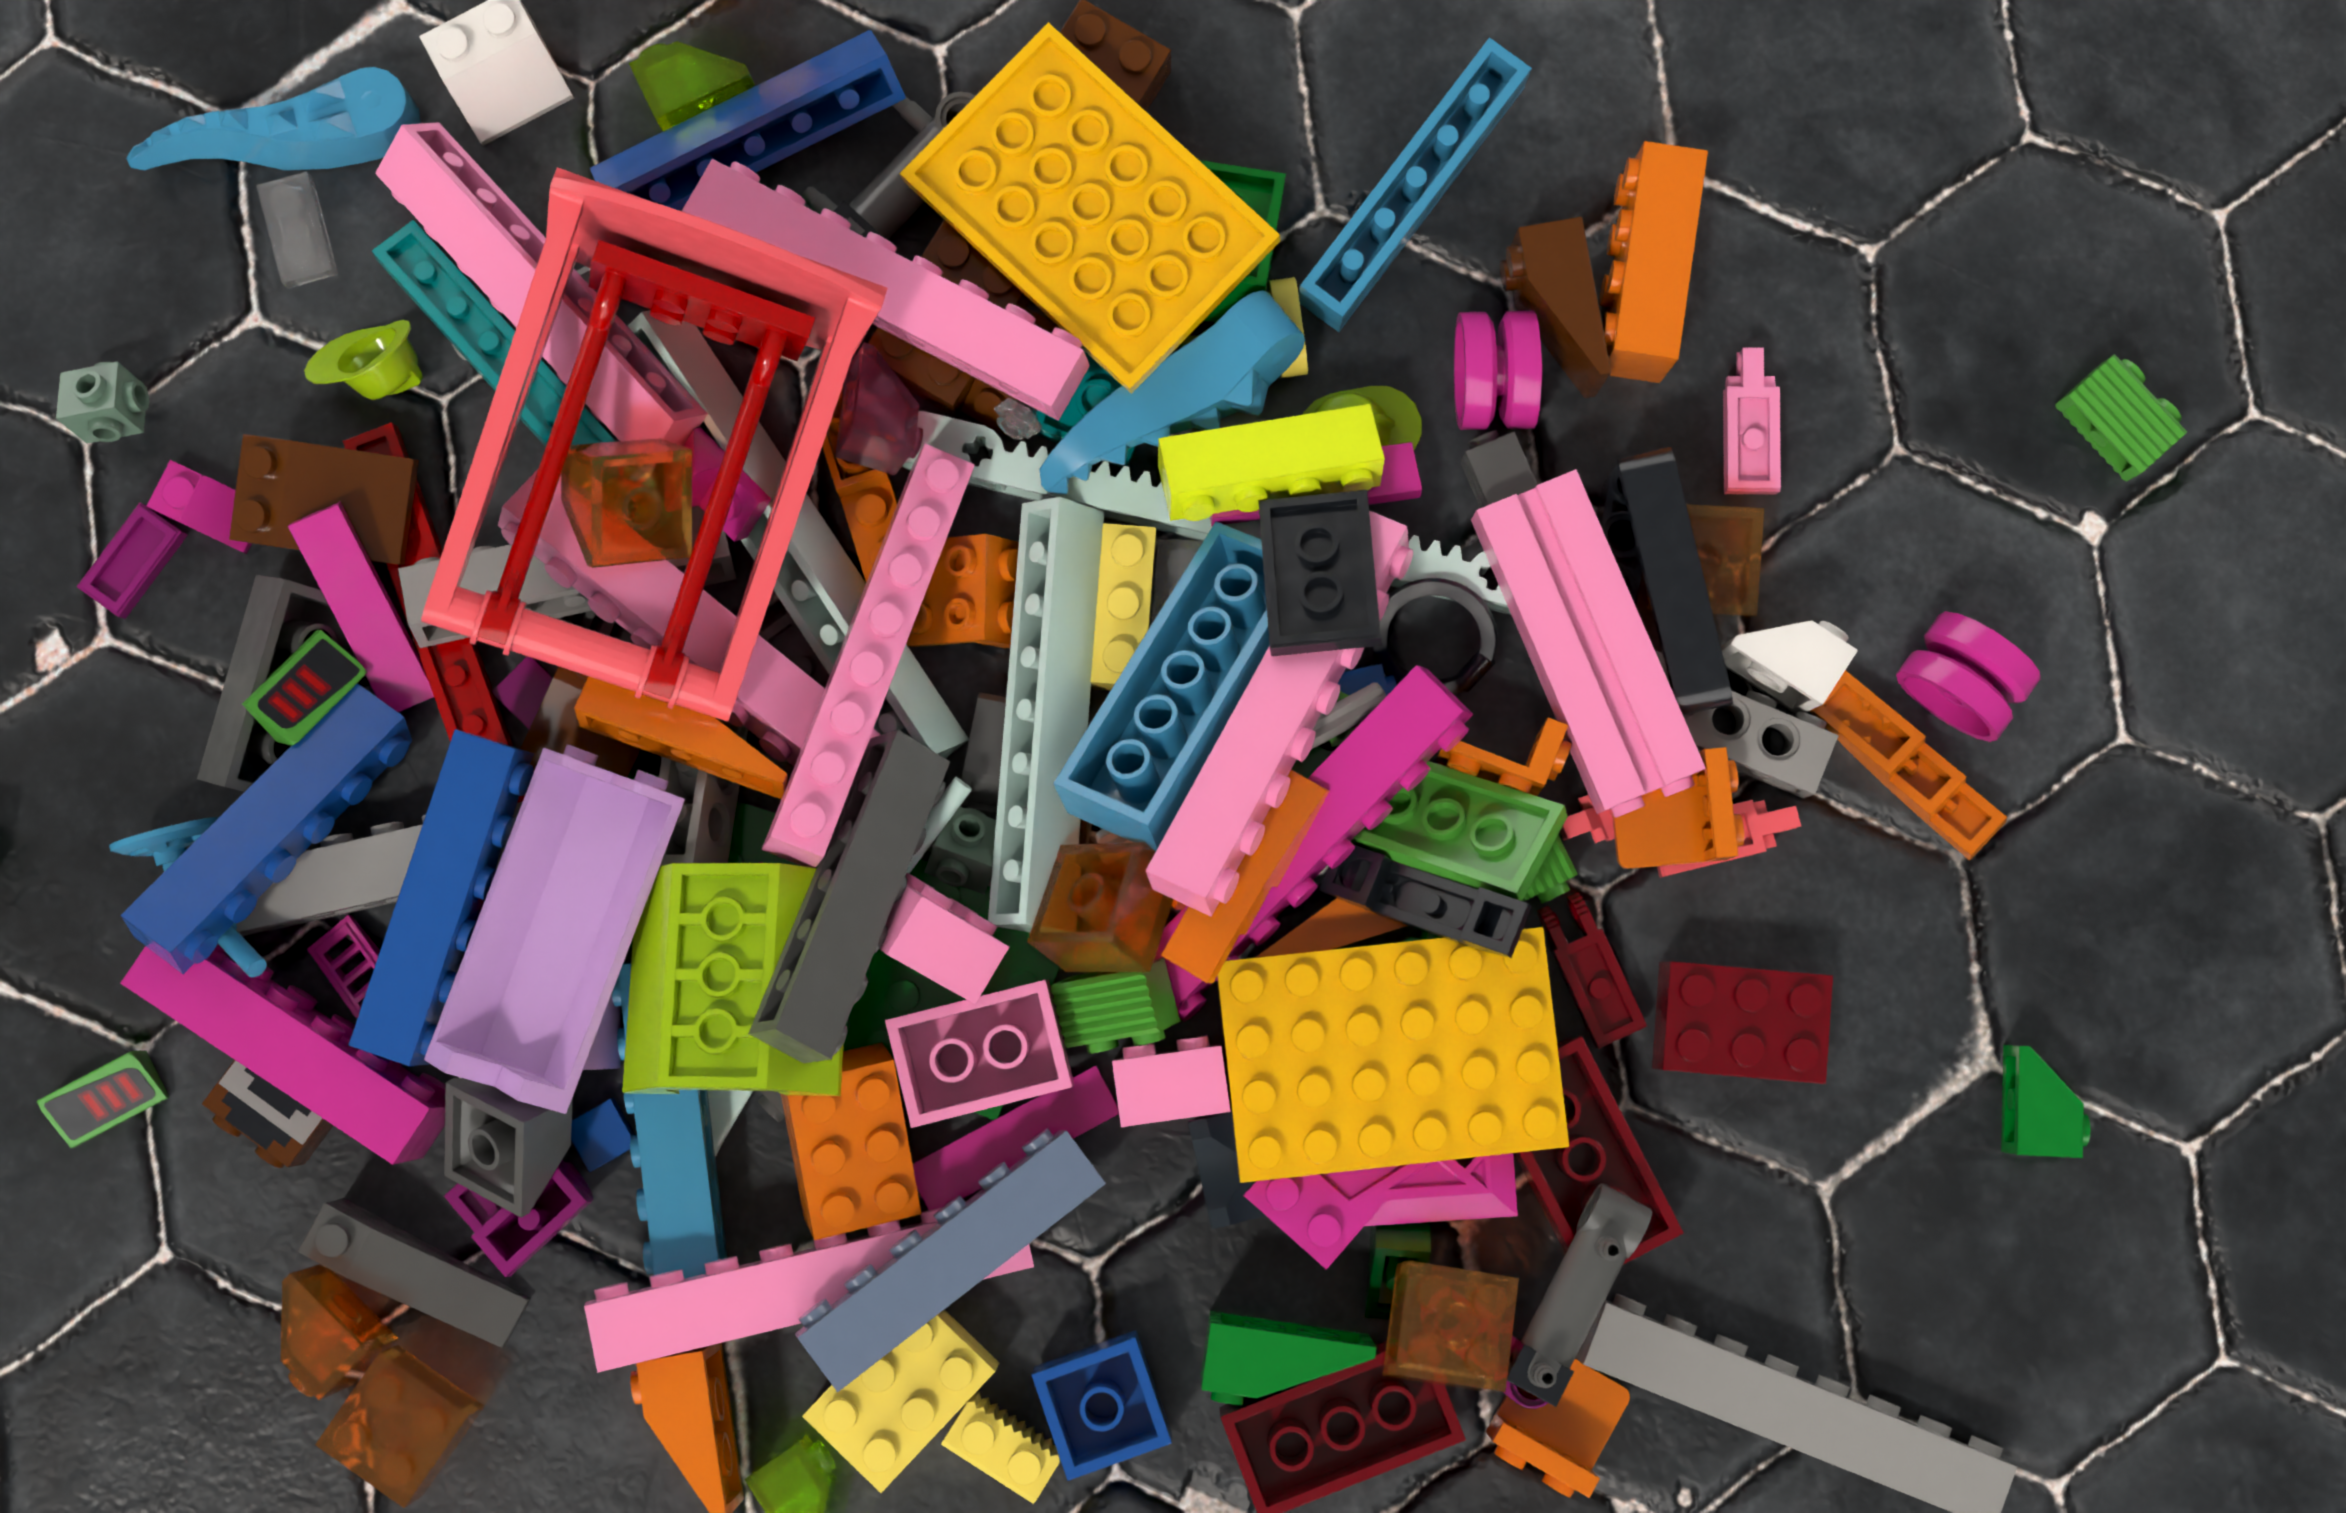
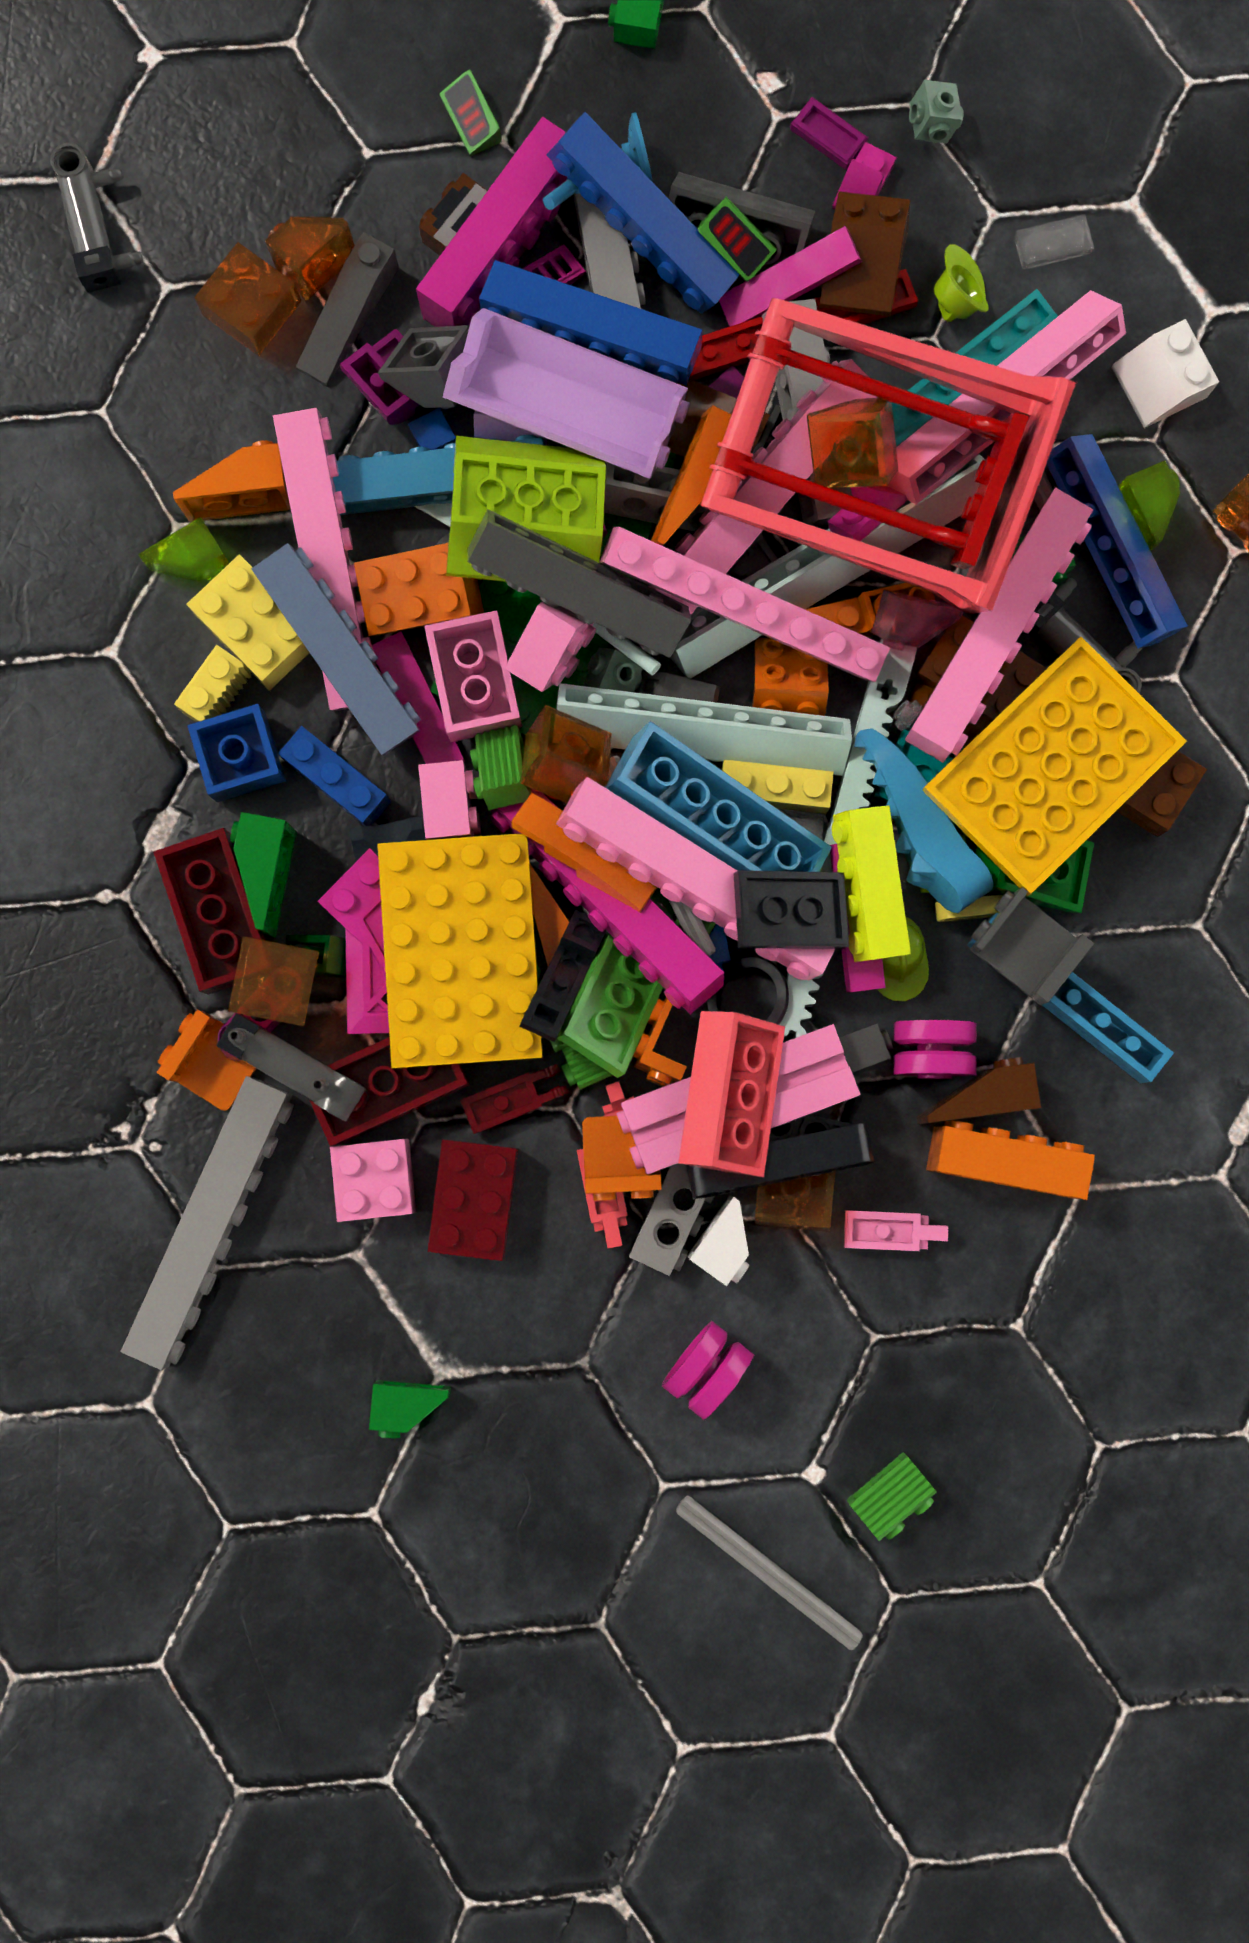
camera: 90 degrees right, 0 degrees up
(322, 129) = (1123, 257): dark azure animal -> none
(1132, 1256) = (334, 777): none -> blue brick
(1352, 236) = (1029, 947): none -> dark grey panel
(1591, 649) = (732, 1093): none -> coral slope
(1723, 1169) = (373, 1180): none -> bright pink brick
(1909, 766) = (649, 1327): orange slope -> none
(2234, 585) = (769, 1573): none -> light grey axle

